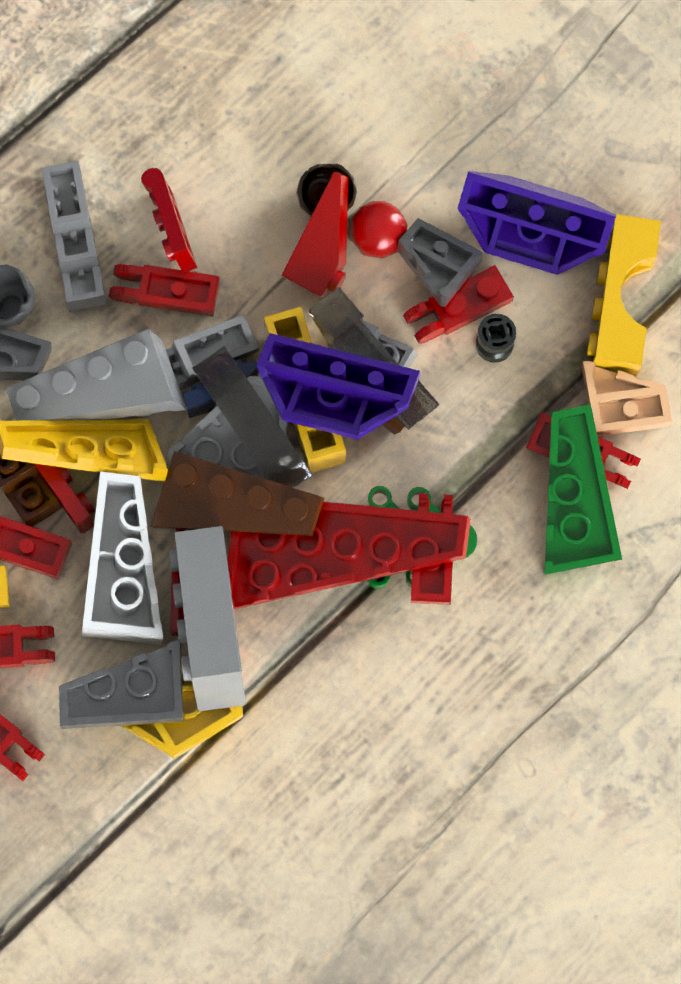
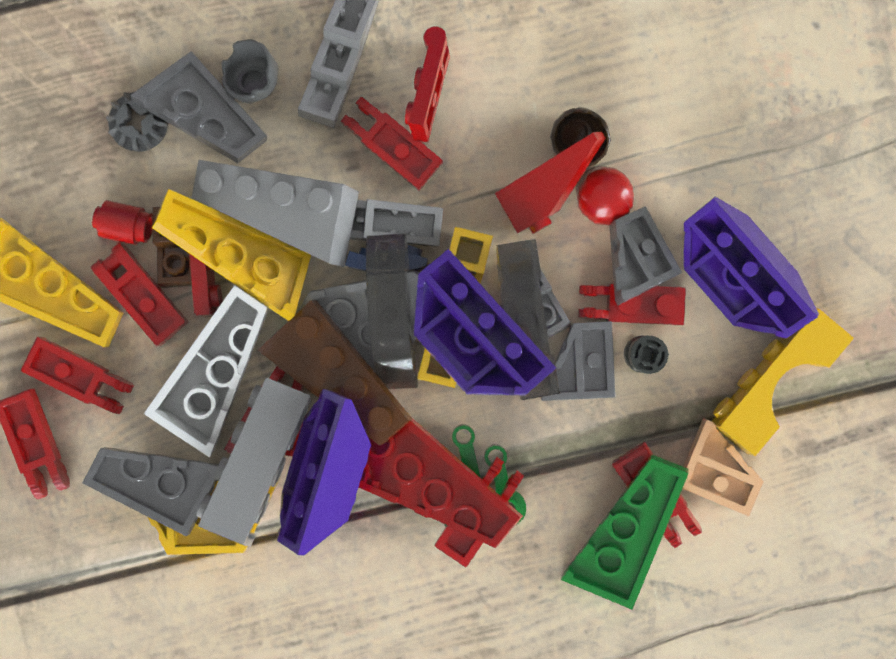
camera: 30 degrees right, 15 degrees up
(271, 581) = (323, 473): none -> dark purple wedge
(449, 377) = (586, 363): none -> flat silver wing

